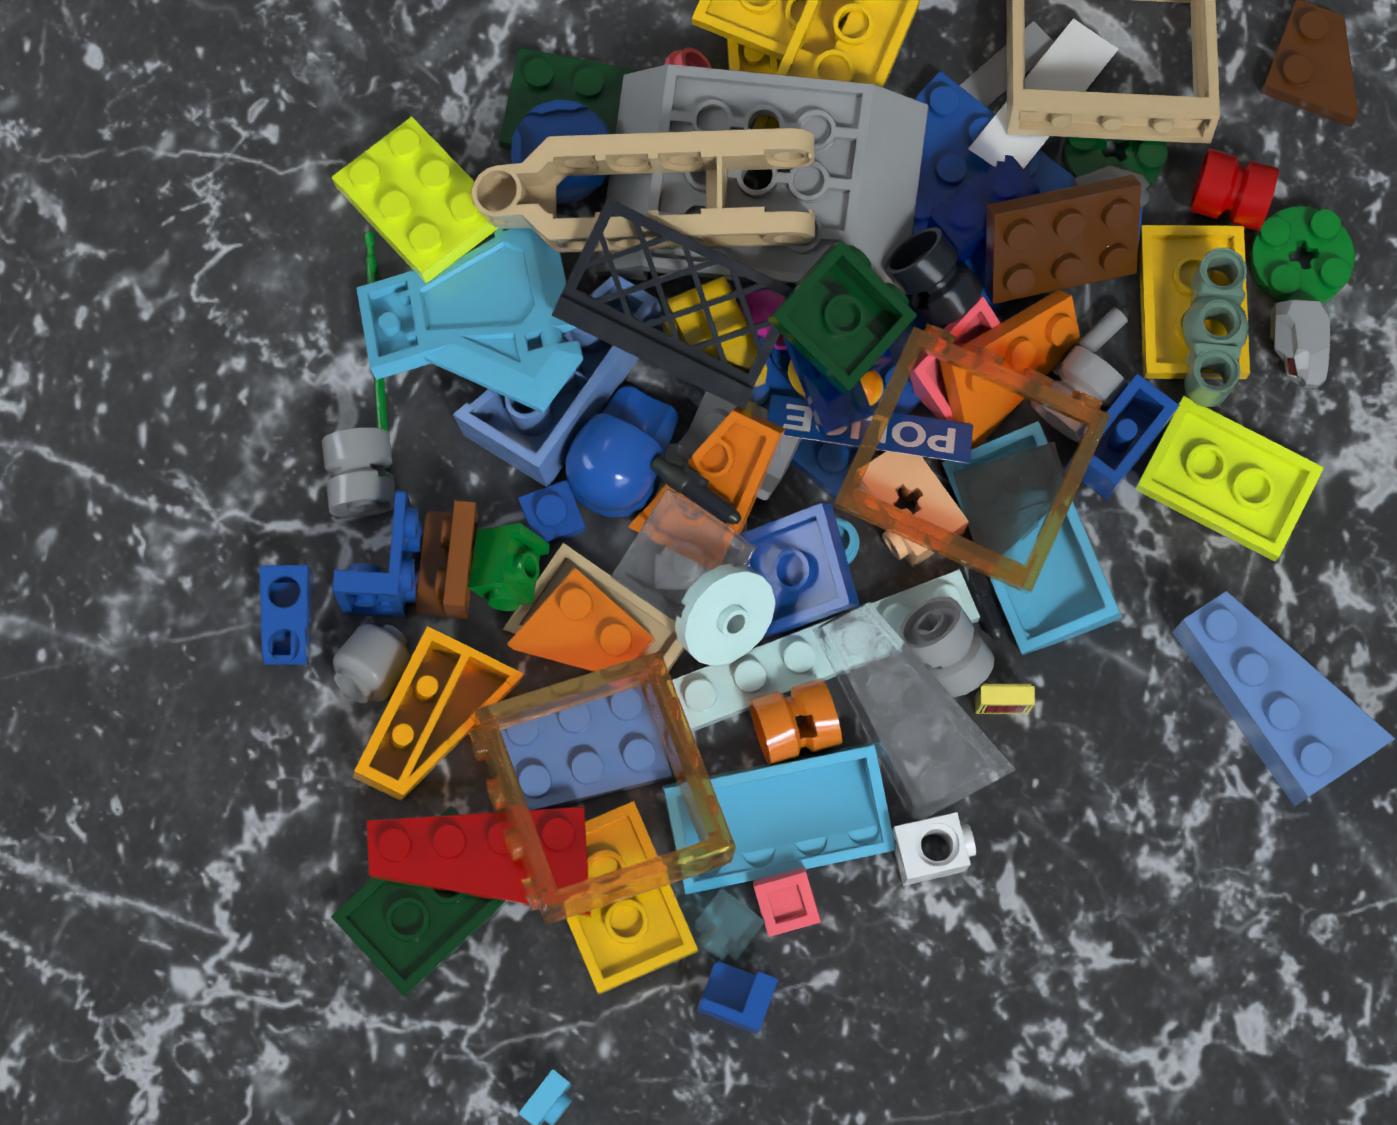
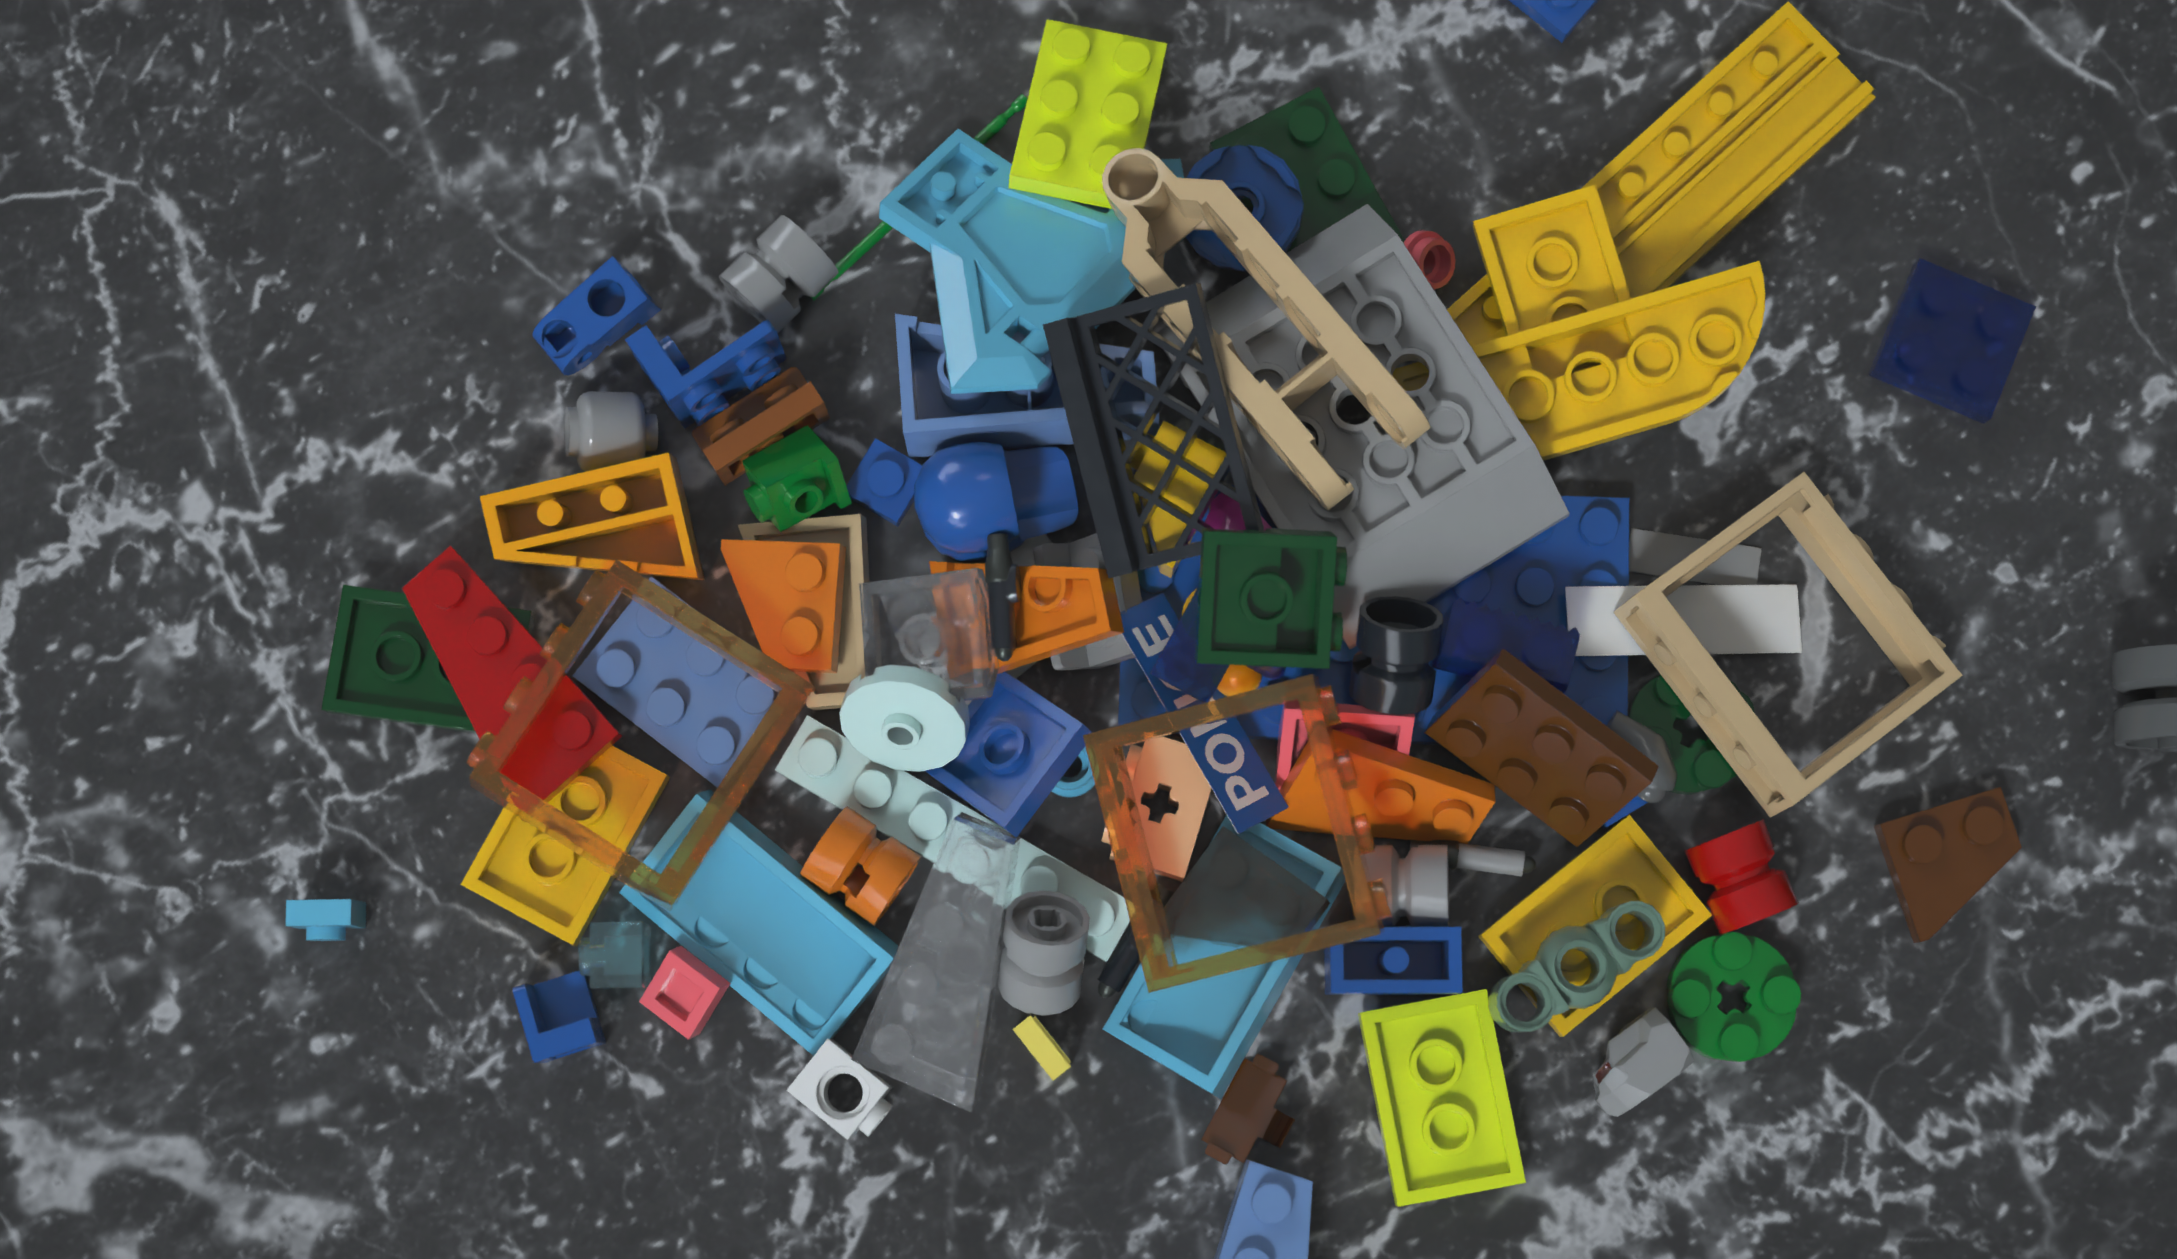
camera: 55 degrees right, 5 degrees up
(1144, 606) = (1248, 1112): none -> reddish brown piece

